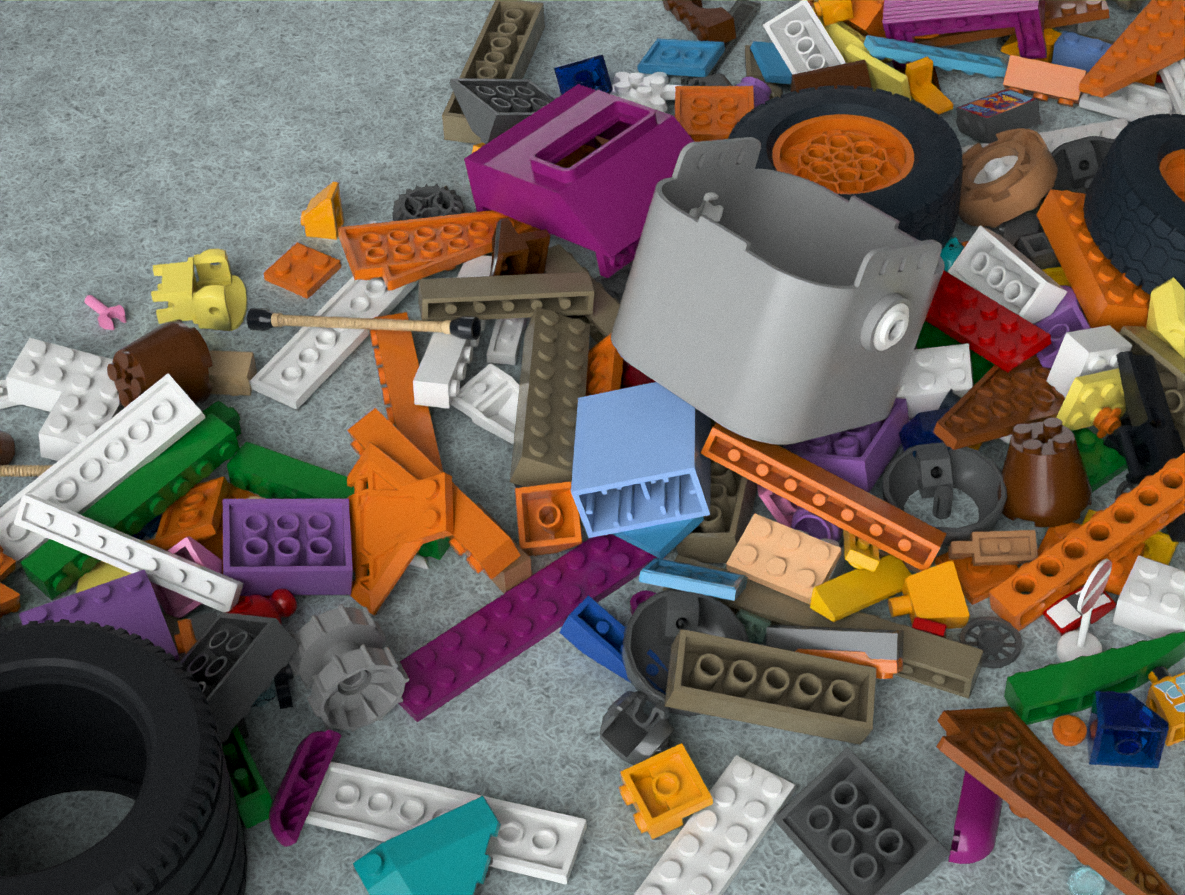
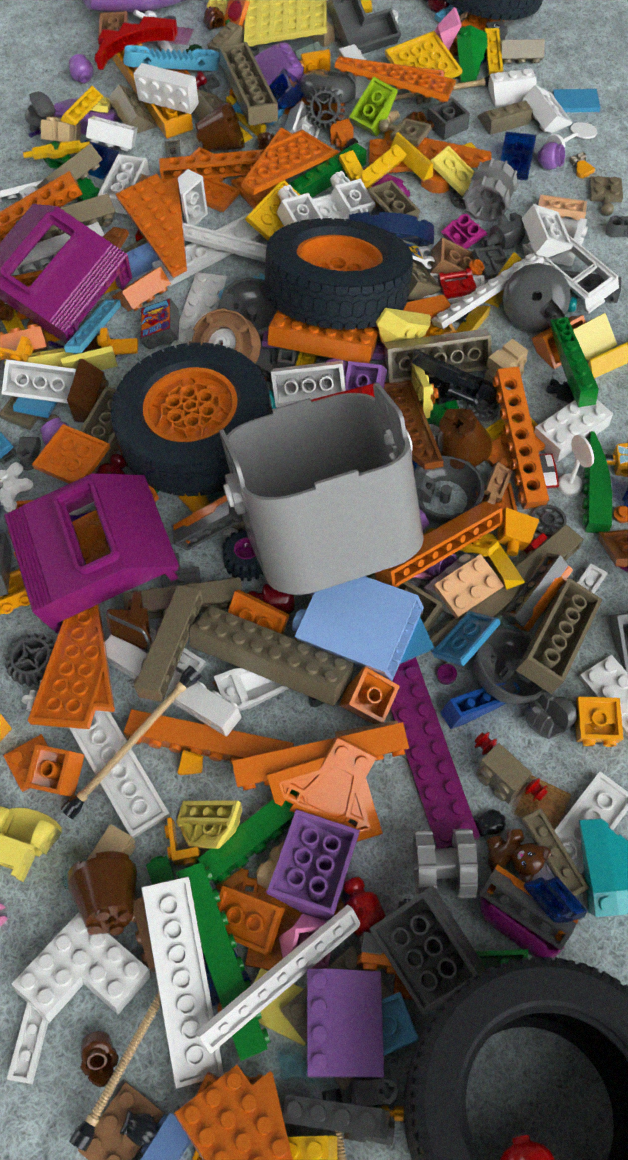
camera: 65 degrees left, 15 degrees up
(262, 420) = (185, 857): none -> light orange bracket
(296, 284) = (54, 770): none -> orange slope
(297, 437) = (208, 822): none -> light yellow wedge
(330, 779) = (510, 896): none -> dark grey piece
(347, 796) = (555, 899): none -> clear blue slope
(368, 395) = (190, 763): none -> light orange slope
(402, 752) = (526, 858): none -> reddish brown animal
(430, 793) = (560, 861): none -> dark tan tile
(444, 722) = (490, 823): none -> black animal
(505, 772) = (552, 804): none -> clear orange tile
(518, 699) = (505, 772): none -> dark tan brick
(905, 721) = (592, 578): none -> white plate
(1085, 354) = (399, 377): white brick -> none

